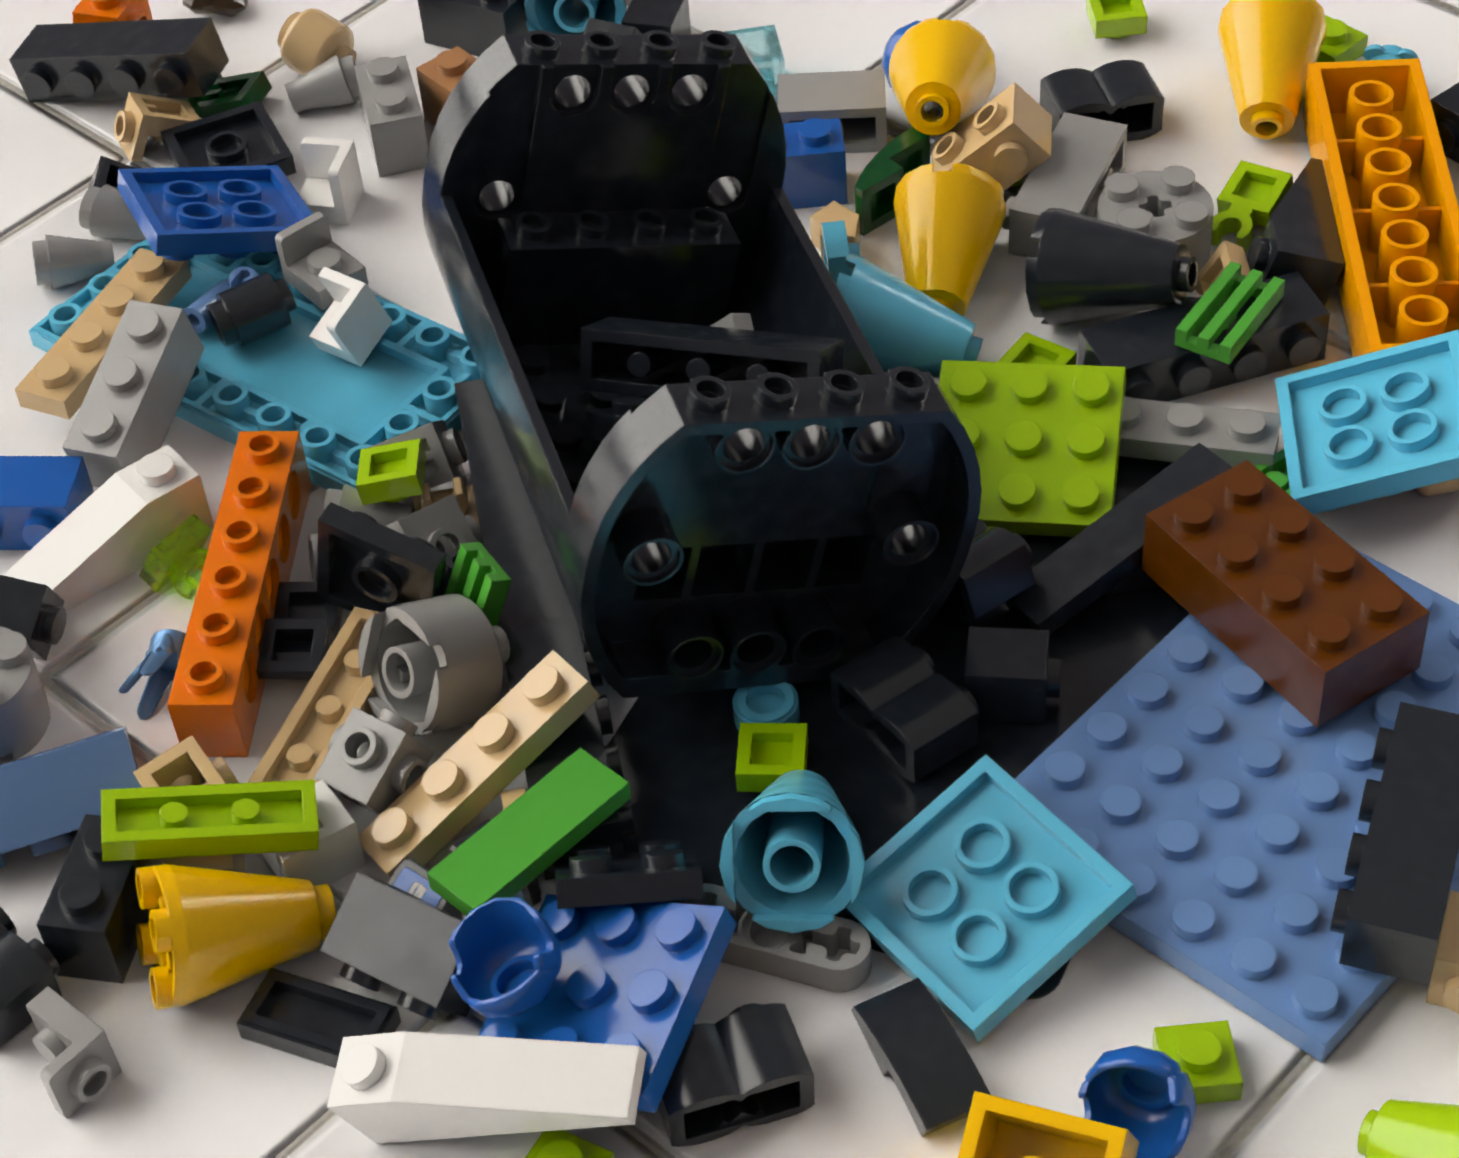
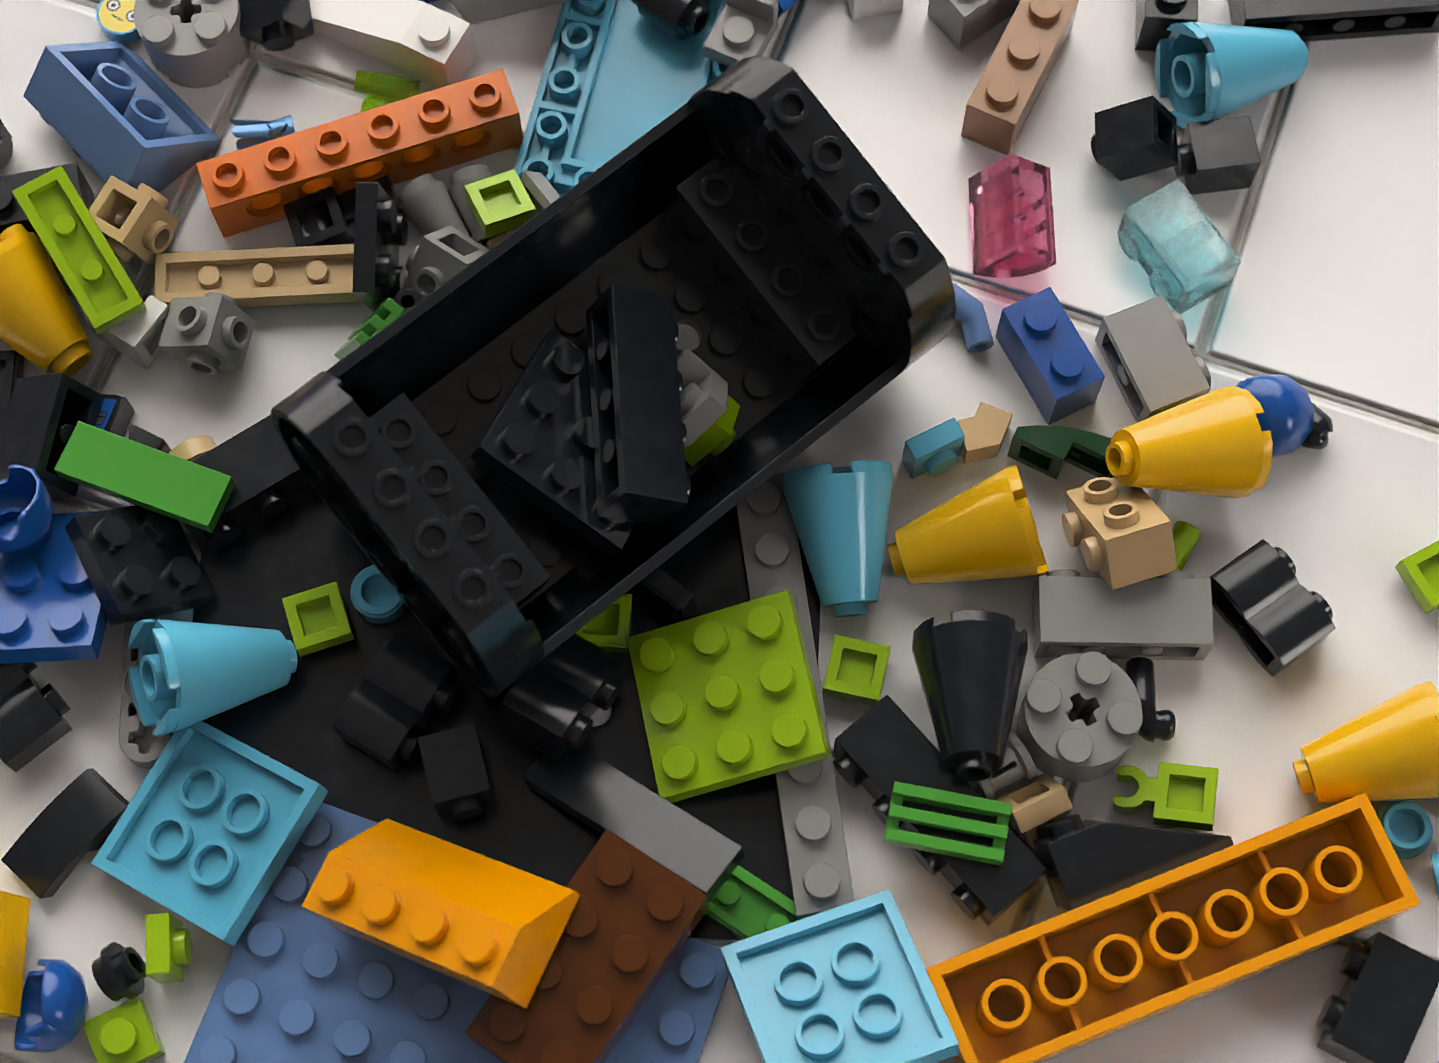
camera: 65 degrees right, 25 degrees up
(352, 321) = (677, 80): white panel -> none
(434, 662) = (304, 329): light grey brick -> none
(479, 765) = (206, 407): tan plate -> none
(1106, 981) = (166, 948): none -> lime plate
(1117, 1028) = (119, 972): none -> black plate
(1186, 661) = (444, 908): none -> light orange slope

